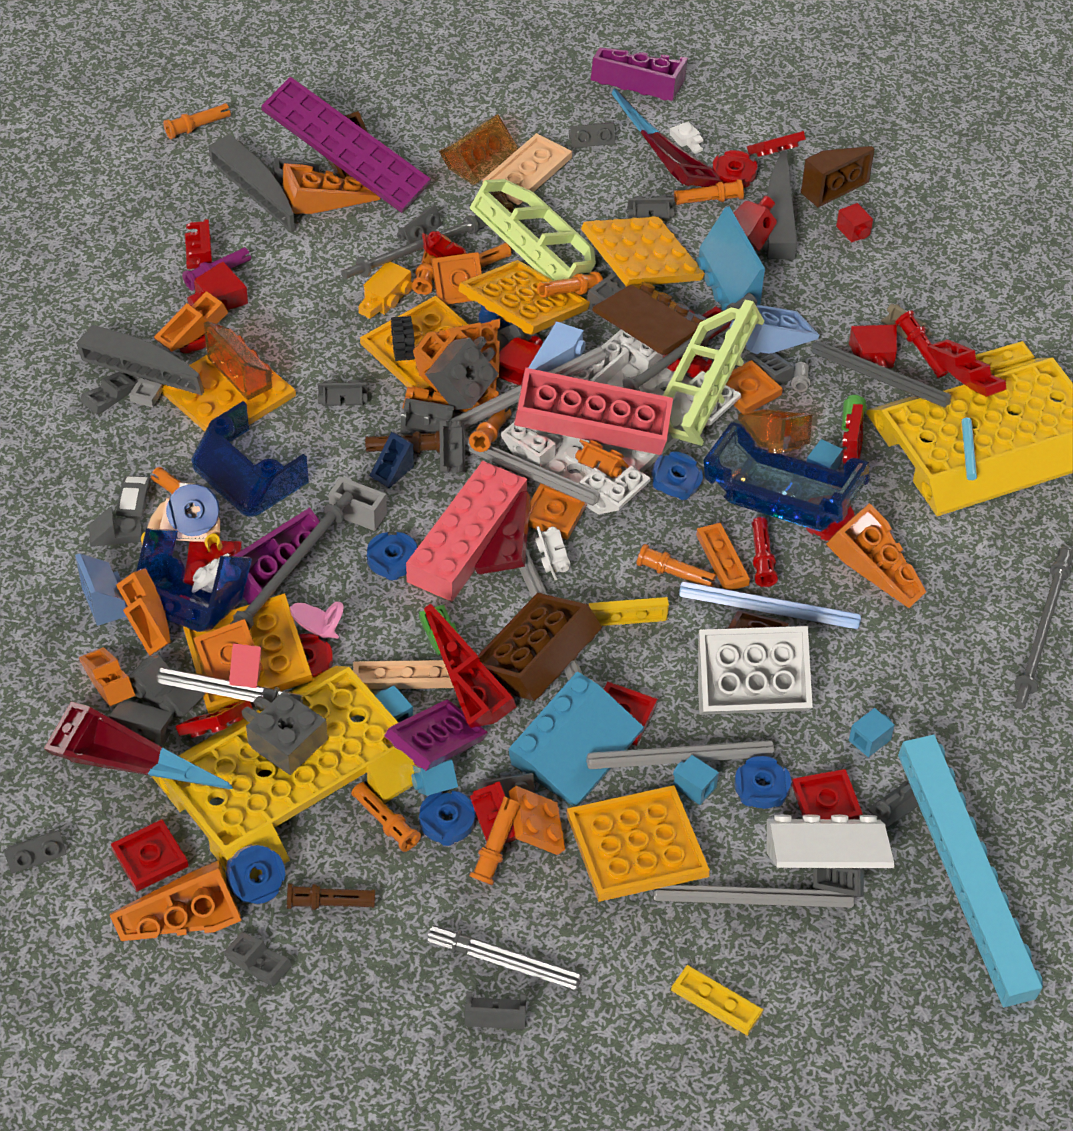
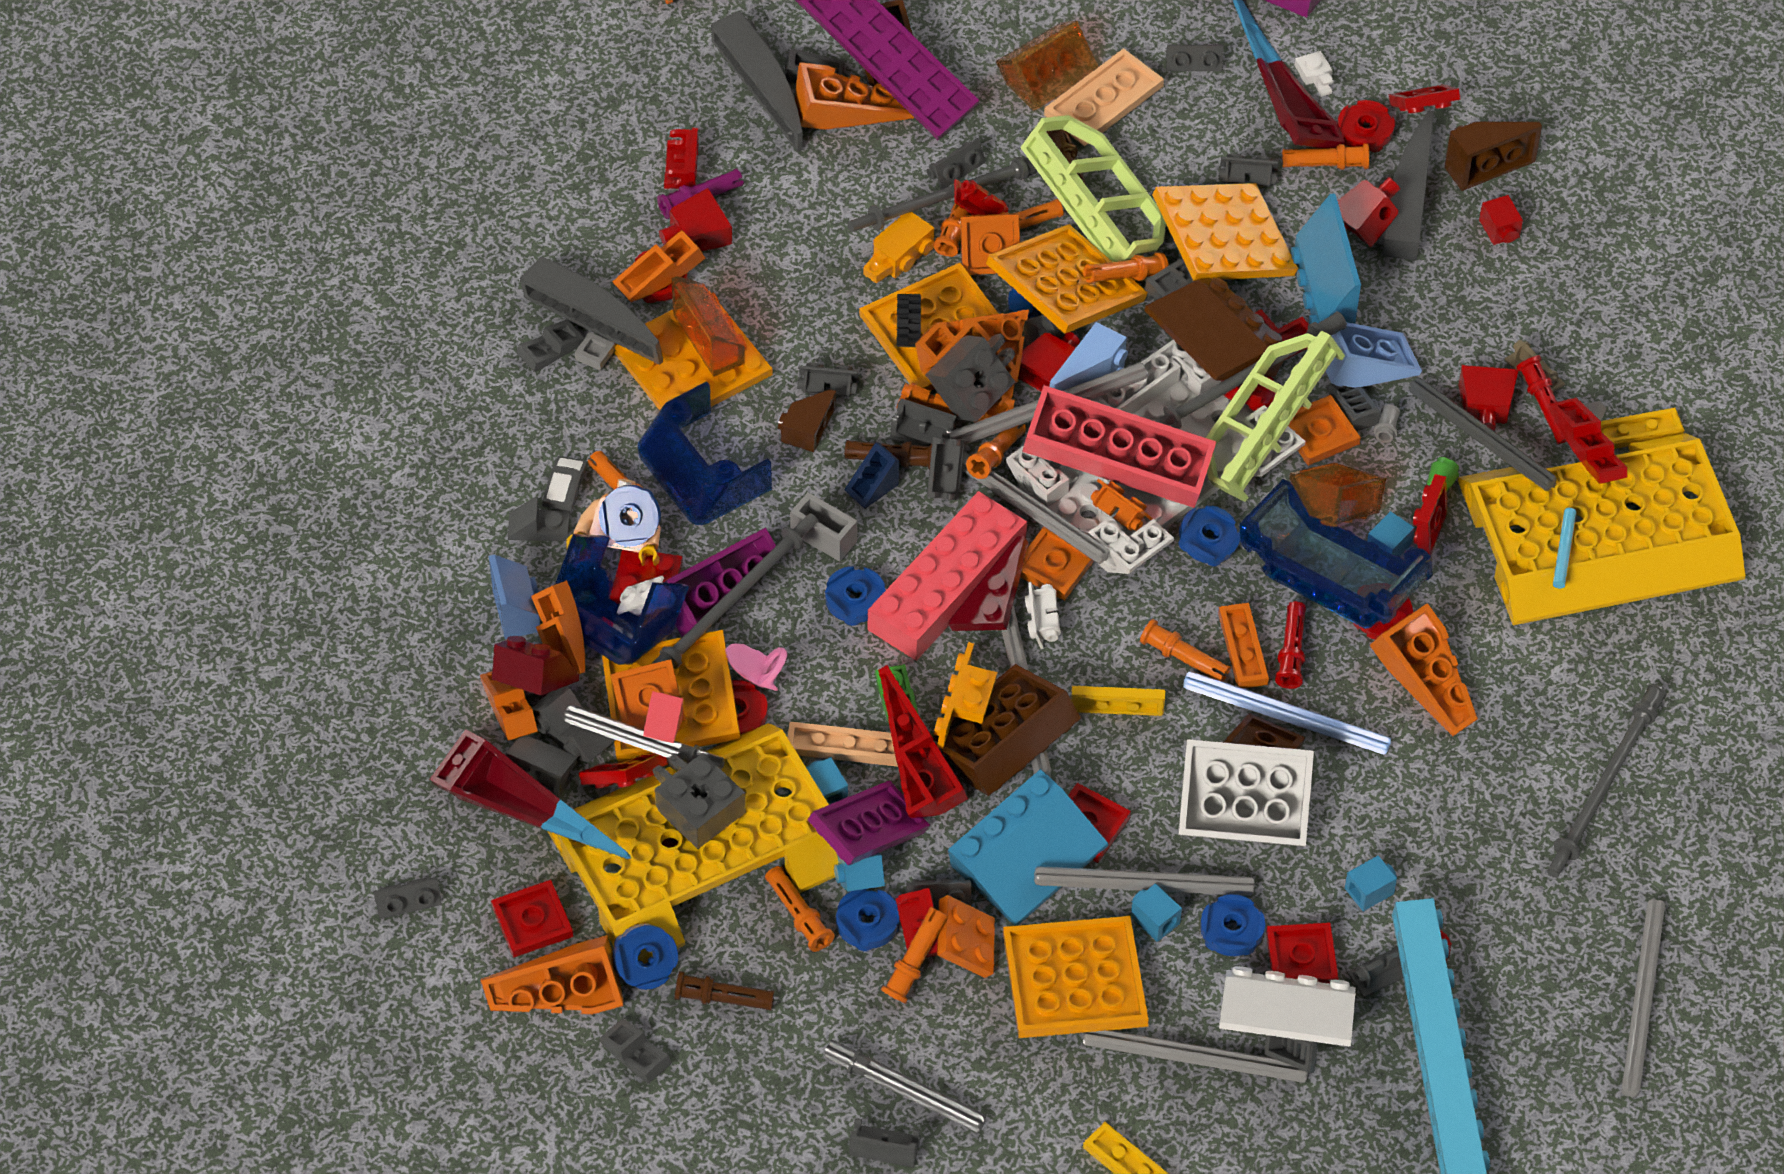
camera: 10 degrees right, 5 degrees up
(123, 640) = (531, 666): none -> dark red slope
(330, 425) = (807, 420): none -> reddish brown slope
(503, 619) = (969, 696): none -> light orange bracket

